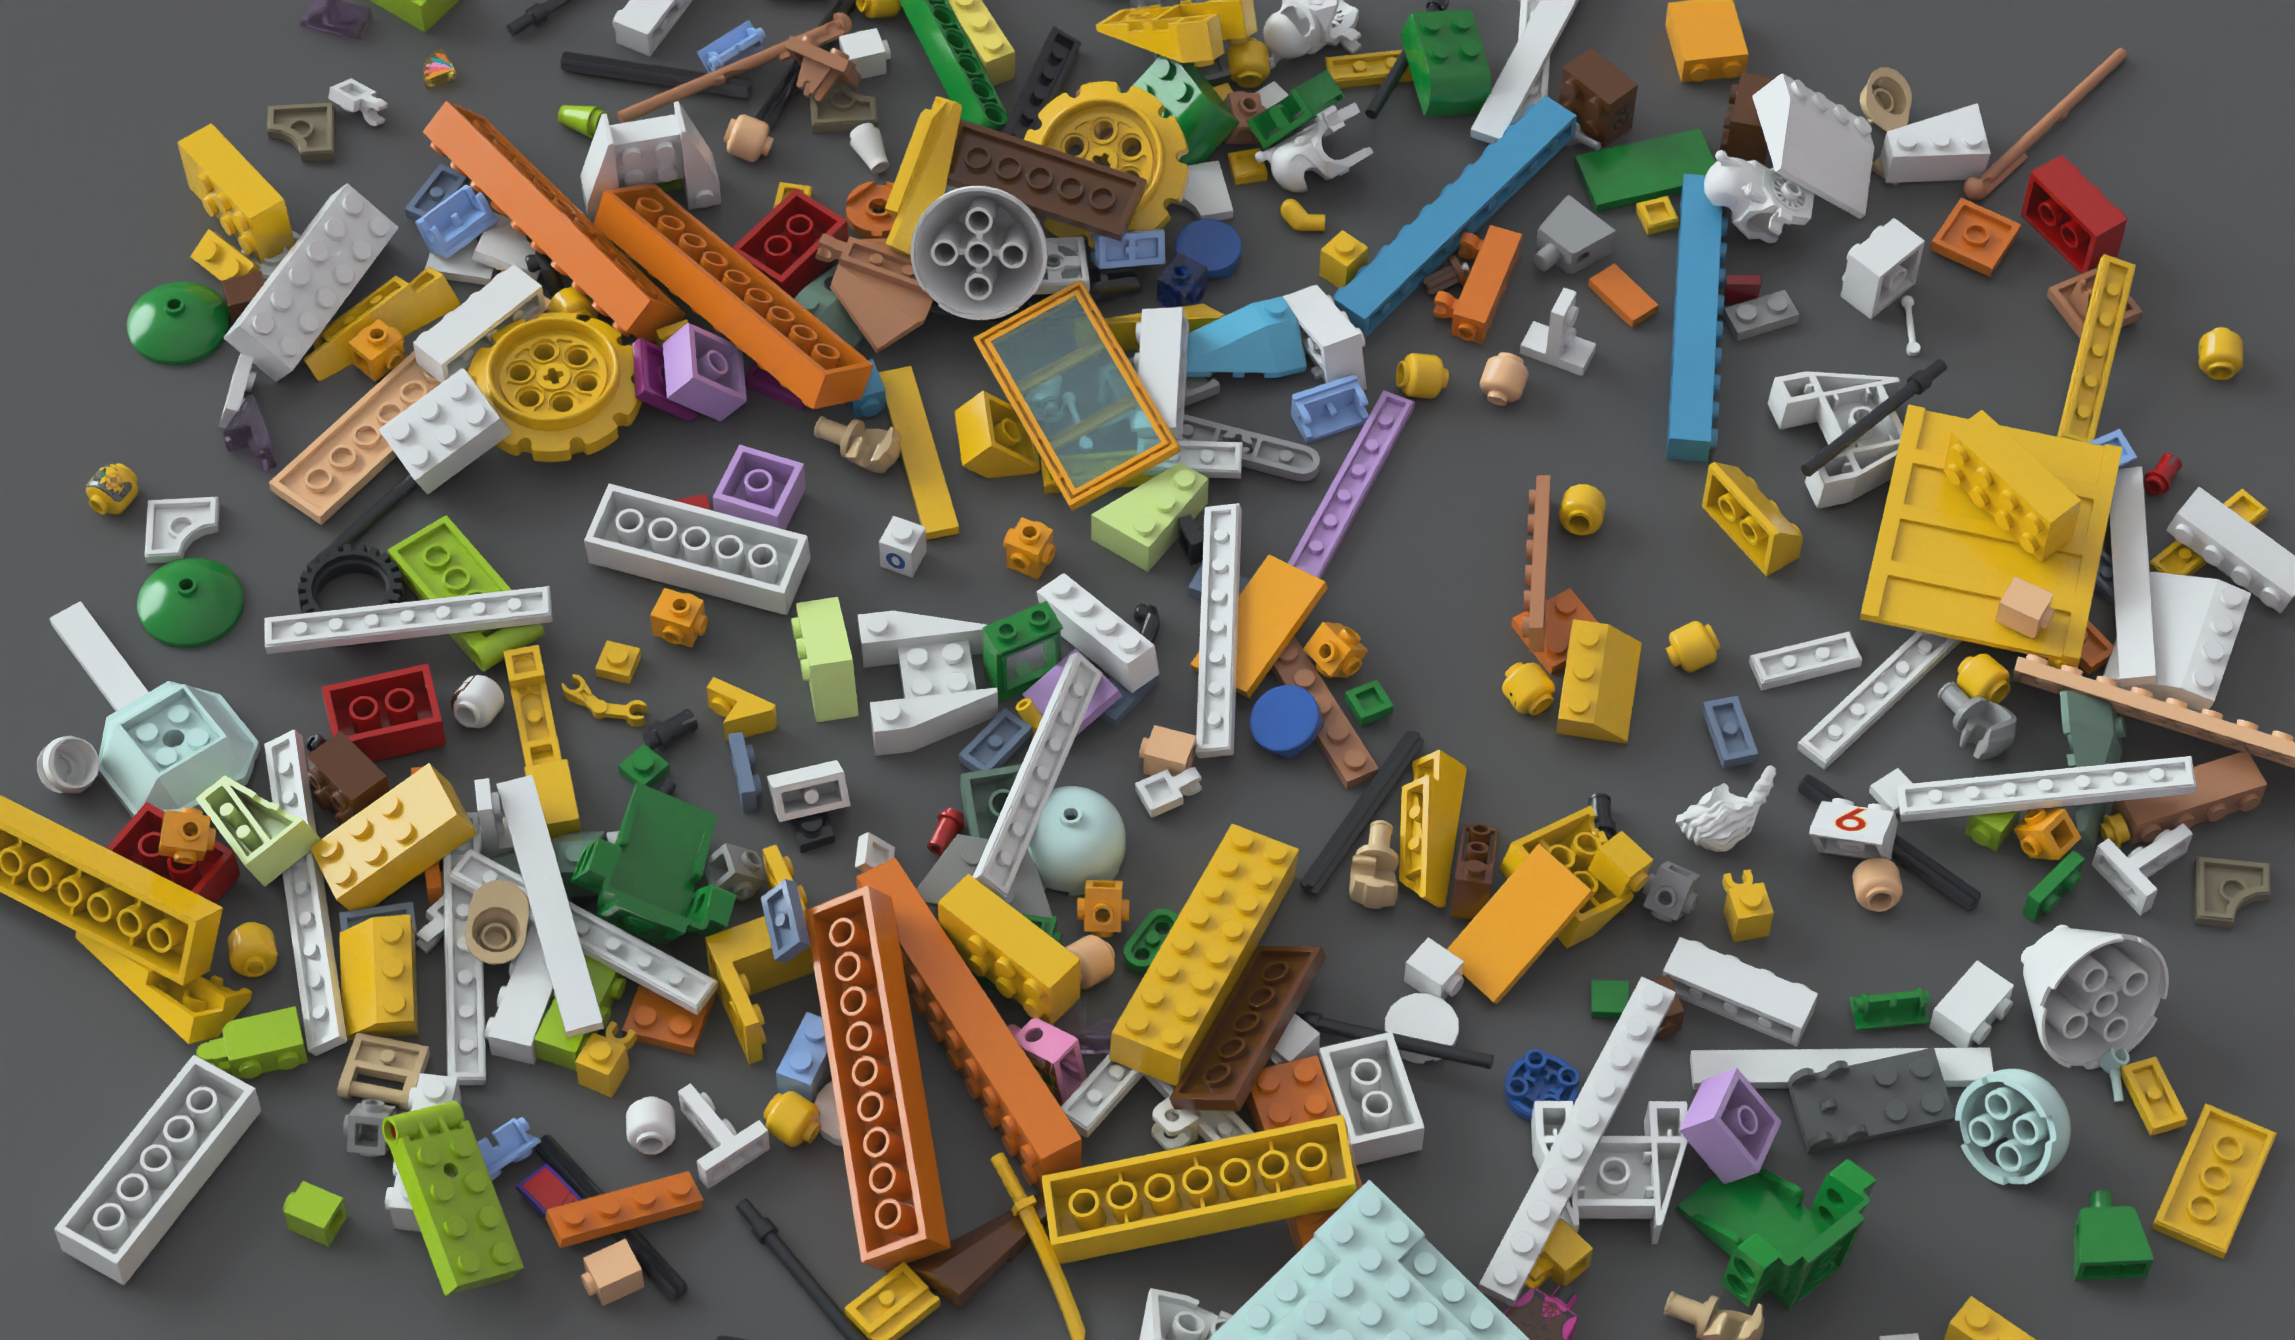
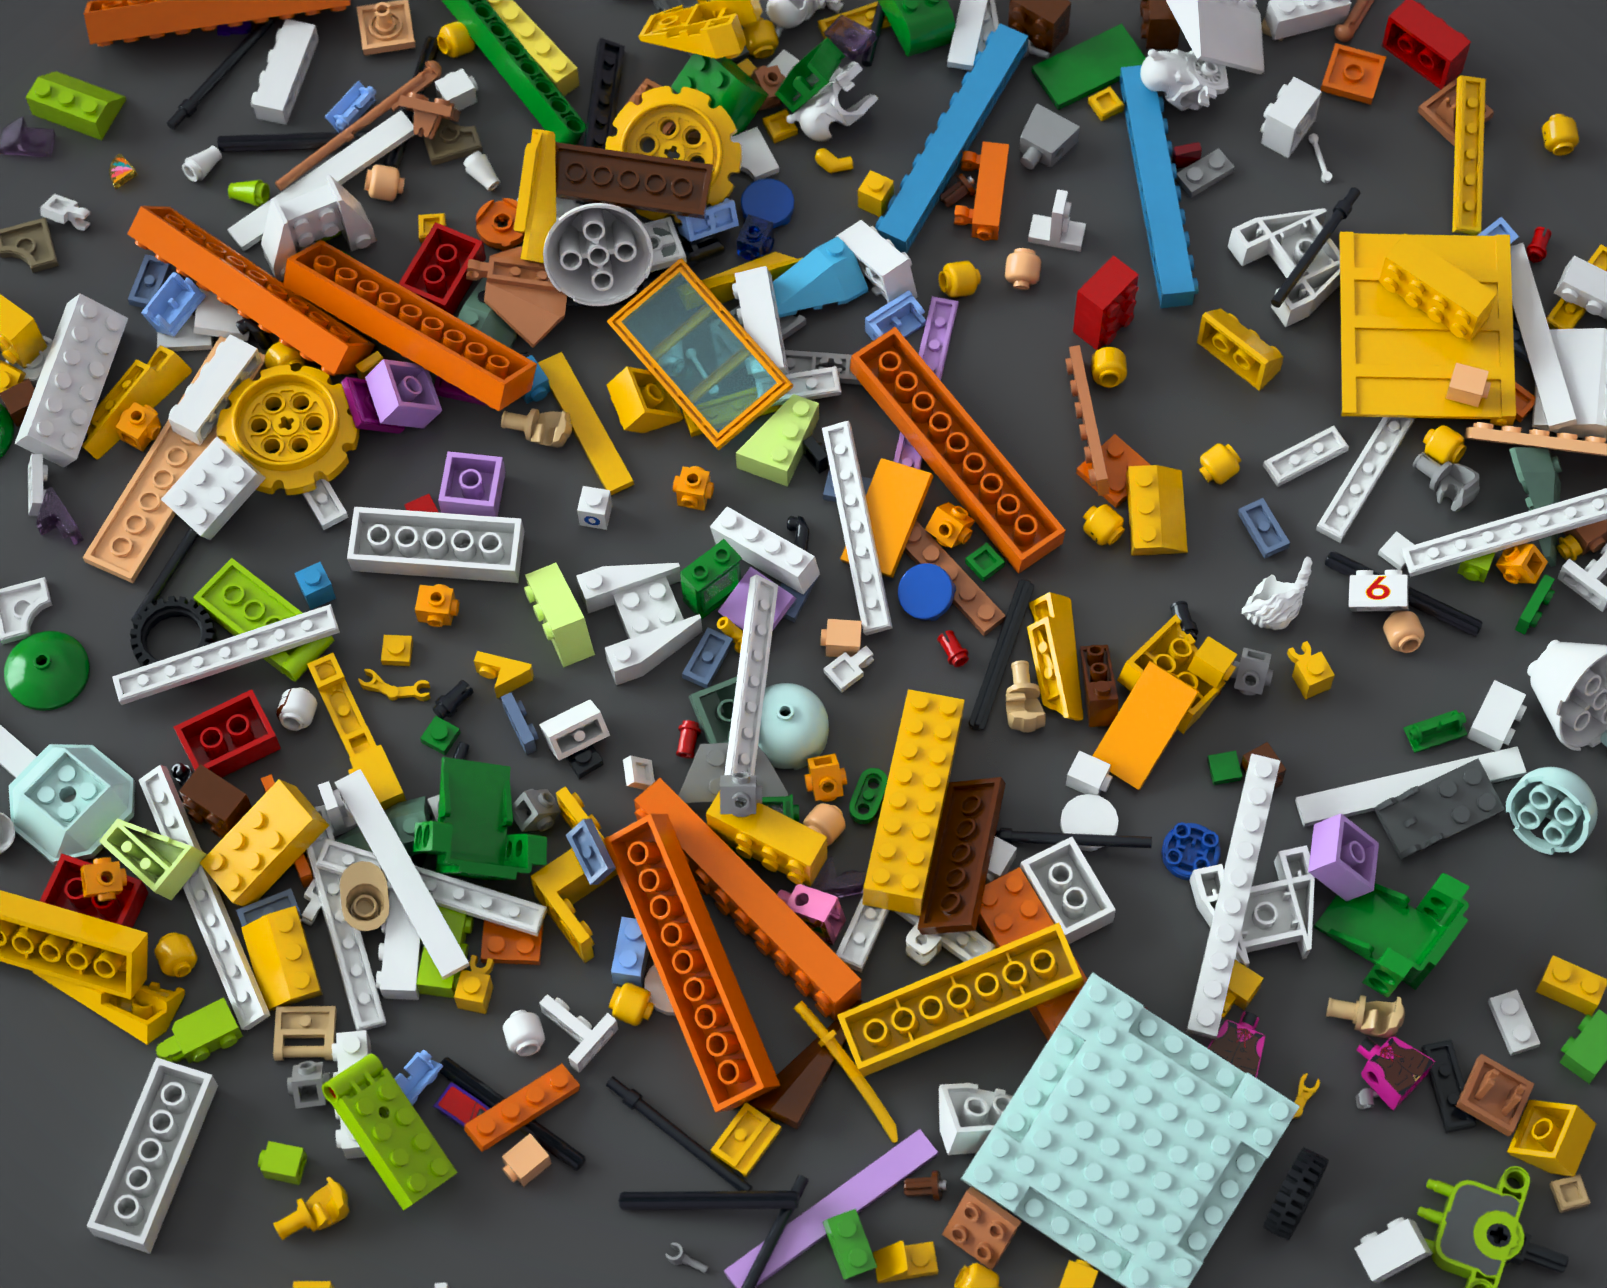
camera: 10 degrees left, 10 degrees up
(344, 1280) = (320, 1211): none -> yellow piece
(533, 78) = (200, 164): none -> white cone
(539, 565) = (315, 585): none -> dark azure brick
(577, 481) = (325, 504): none -> white plate
(703, 111) = (341, 167): none -> white tile
(983, 884) = (739, 794): none -> light grey brick
(1305, 802) = (956, 654): none -> red pin
(1359, 80) = (850, 36): none -> slope
(1366, 566) = (957, 450): none -> orange brick
(1593, 431) = (1106, 303): none -> red brick
(1623, 295) = (1096, 177): orange tile -> none
(1740, 991) = (1322, 741): white brick -> none

